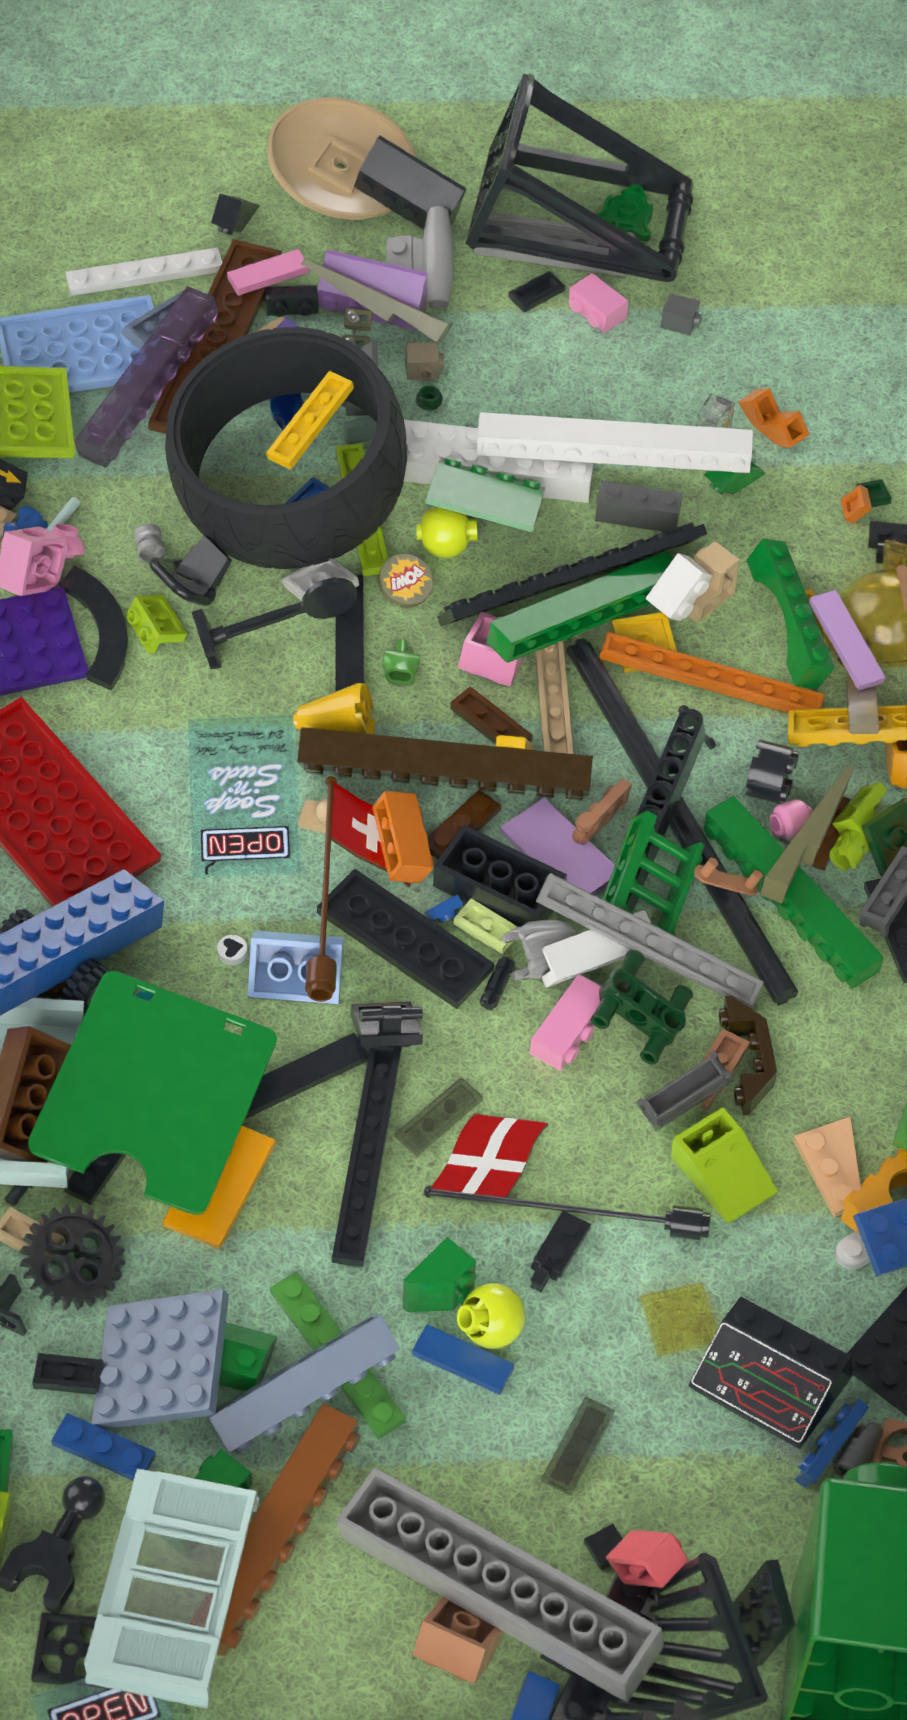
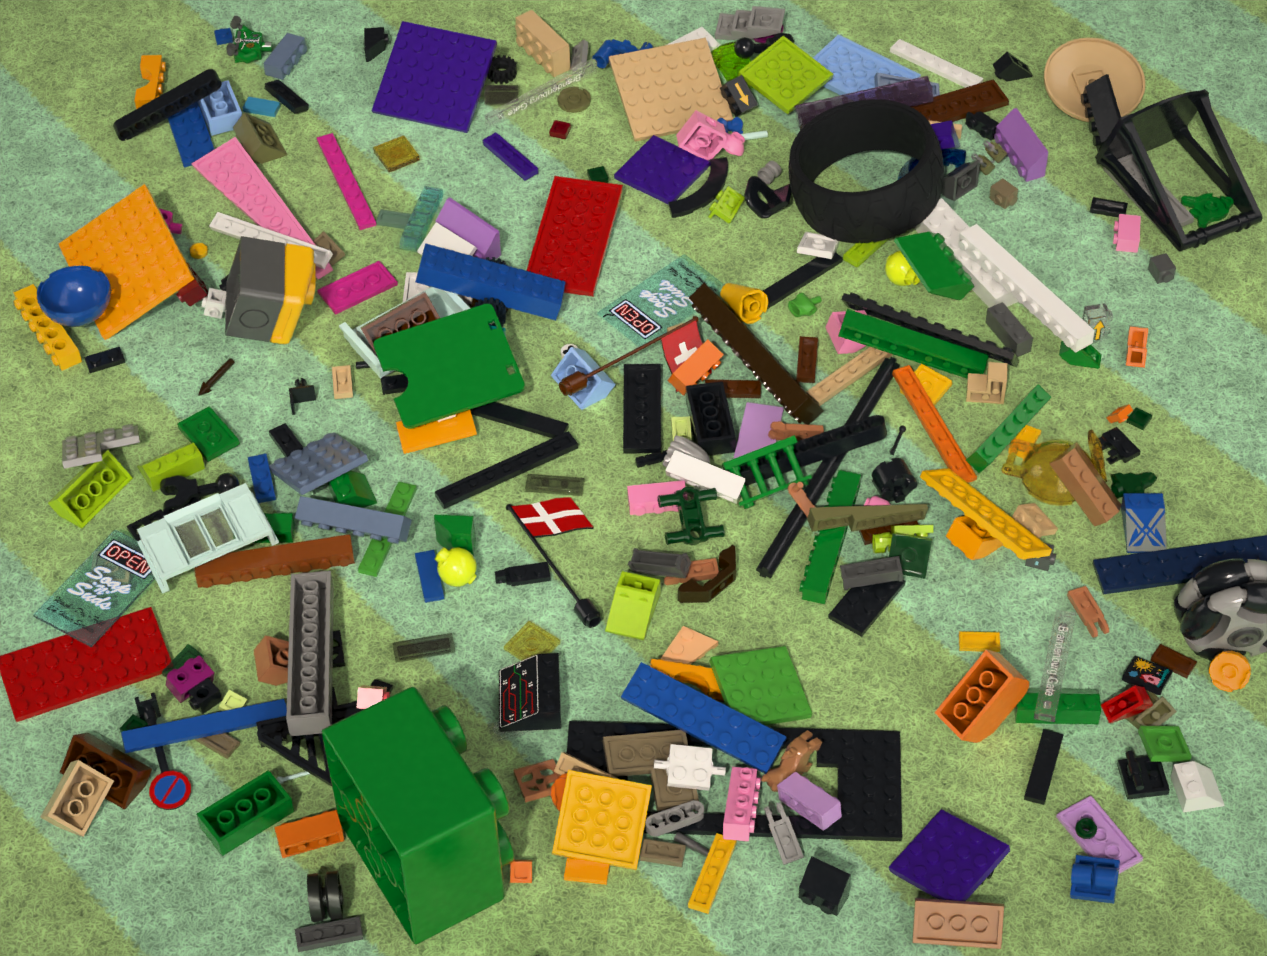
camera: 55 degrees right, 5 degrees down
(74, 1229) = (329, 410): black gear -> none
(267, 272) = (986, 103): bright pink tile -> none
(310, 420) = (869, 155): yellow plate -> none
(320, 601) = (799, 245): black piece -> none
(381, 303) = (1012, 150): olive slope -> none
(387, 1024) = (581, 429): black plate -> none
(405, 580) = (855, 274): tile -> none
(429, 255) = (1070, 152): light grey plate -> none
(429, 398) = (984, 212): dark green plate -> none
(445, 909) = (673, 410): blue plate -> none
(513, 742) = (790, 369): yellow tile -> none
(649, 940) = (727, 492): light grey tile -> none
(679, 587) = (965, 371): white brick -> none
(830, 1442) = (515, 742): blue plate -> none
(847, 640) = (1012, 458): lavender tile -> none
(858, 1448) = (521, 757): dark grey hinge -> none
(862, 709) = (978, 490): dark tan tile -> none

